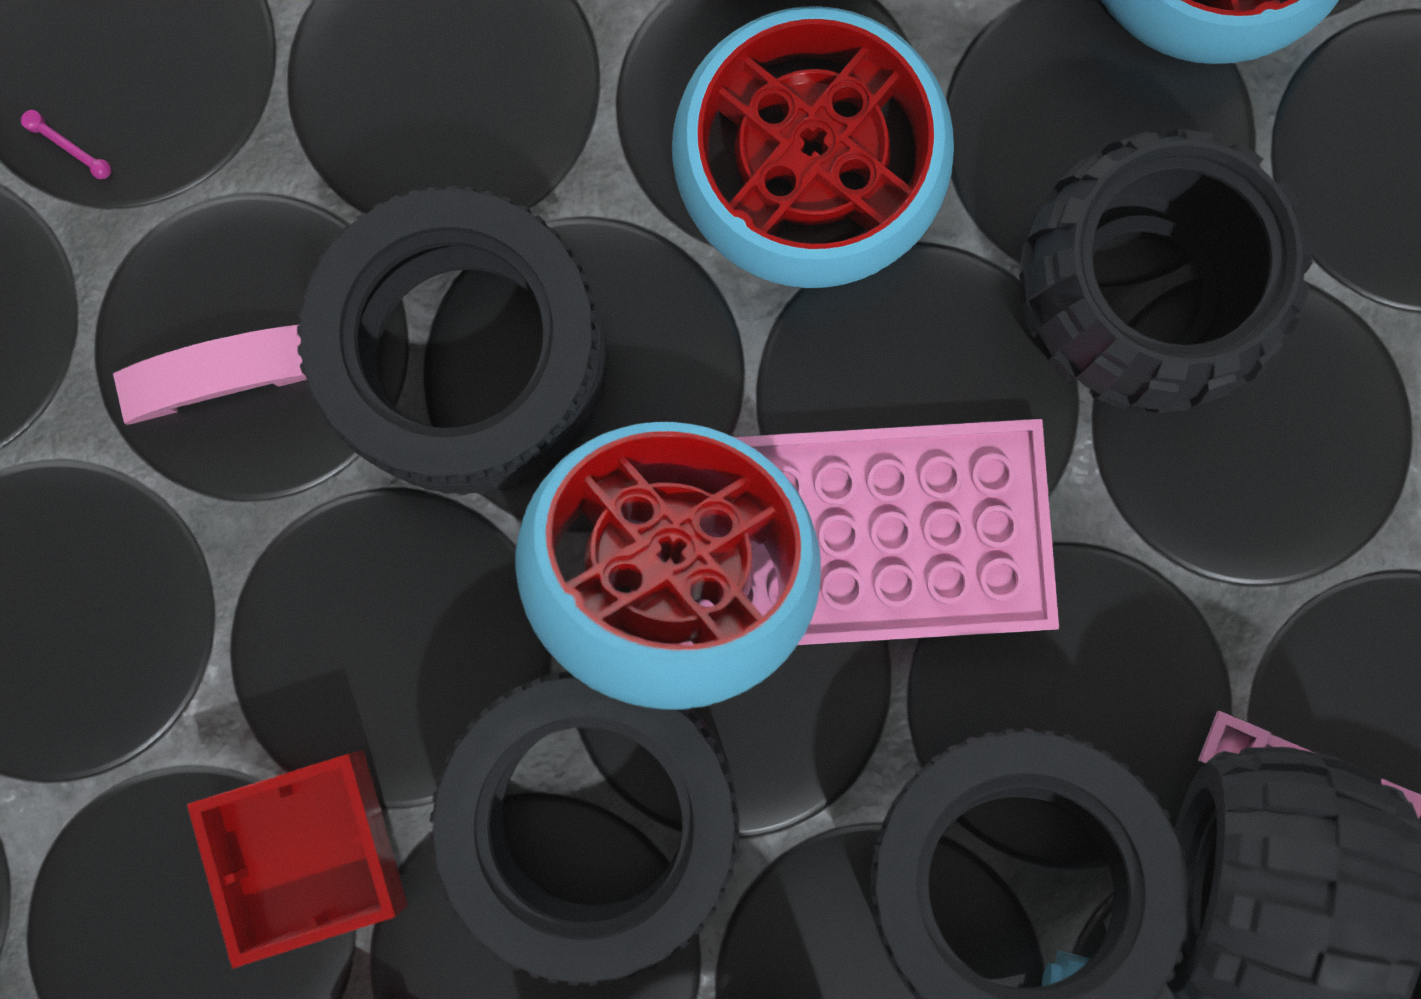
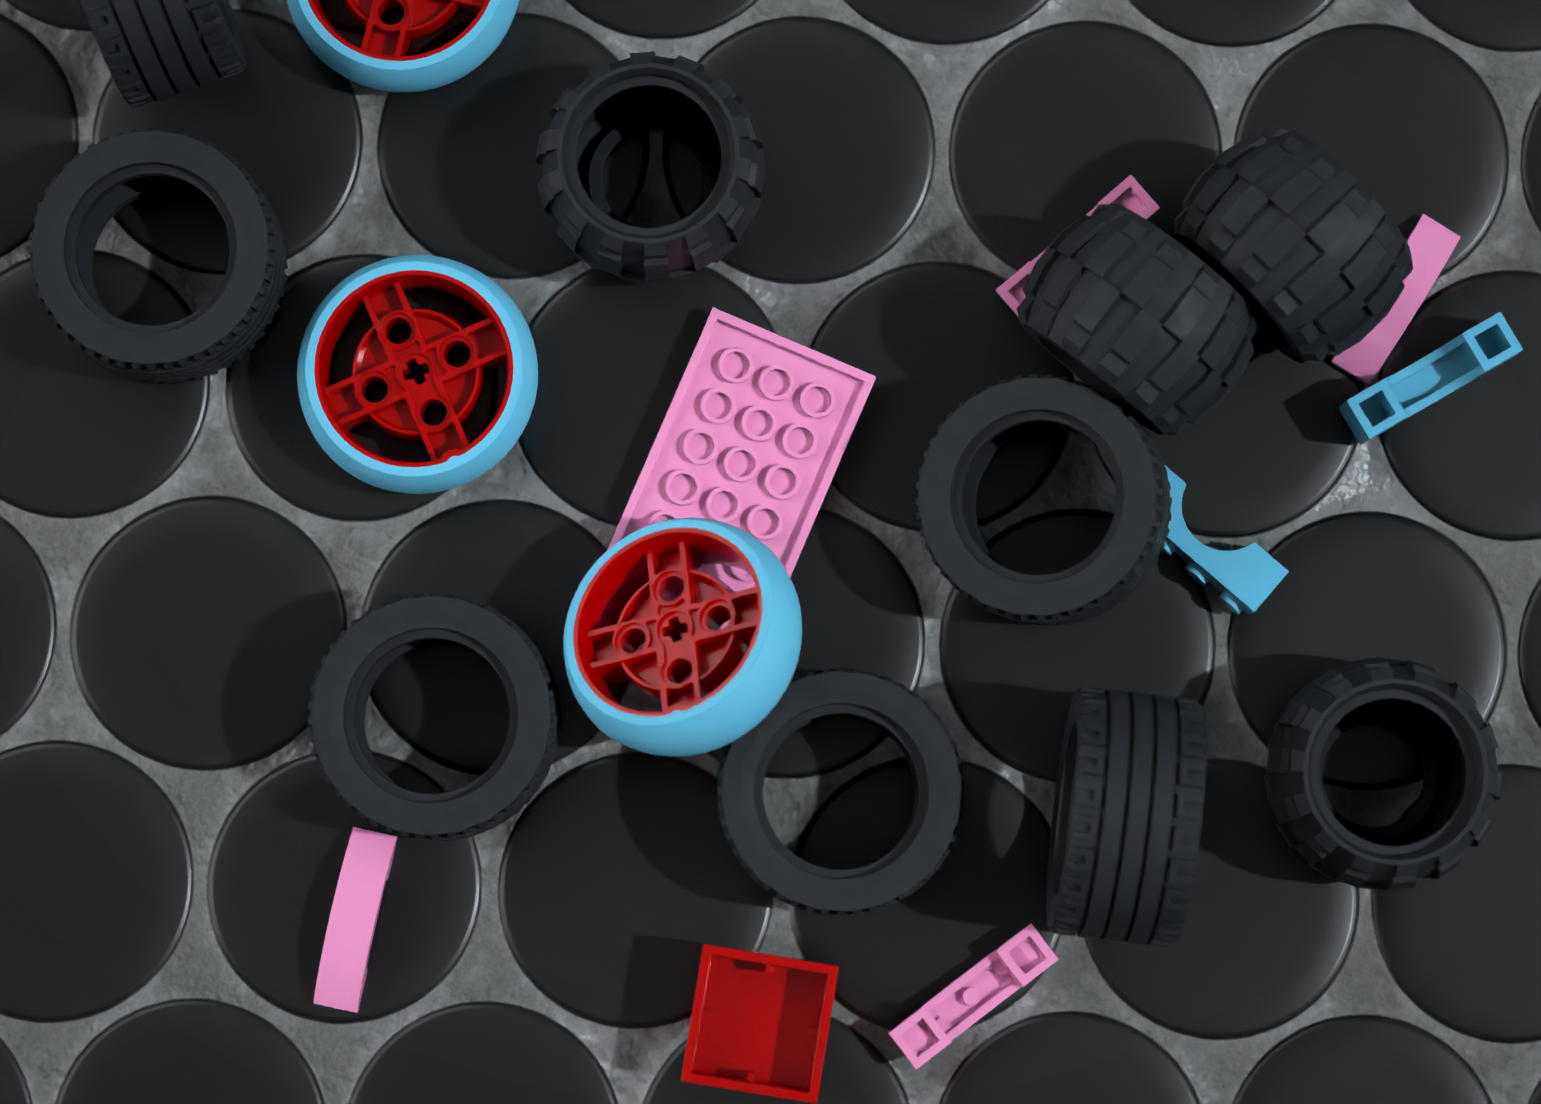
camera: 65 degrees left, 0 degrees up
(35, 123) = (76, 972): dark pink hinge -> none

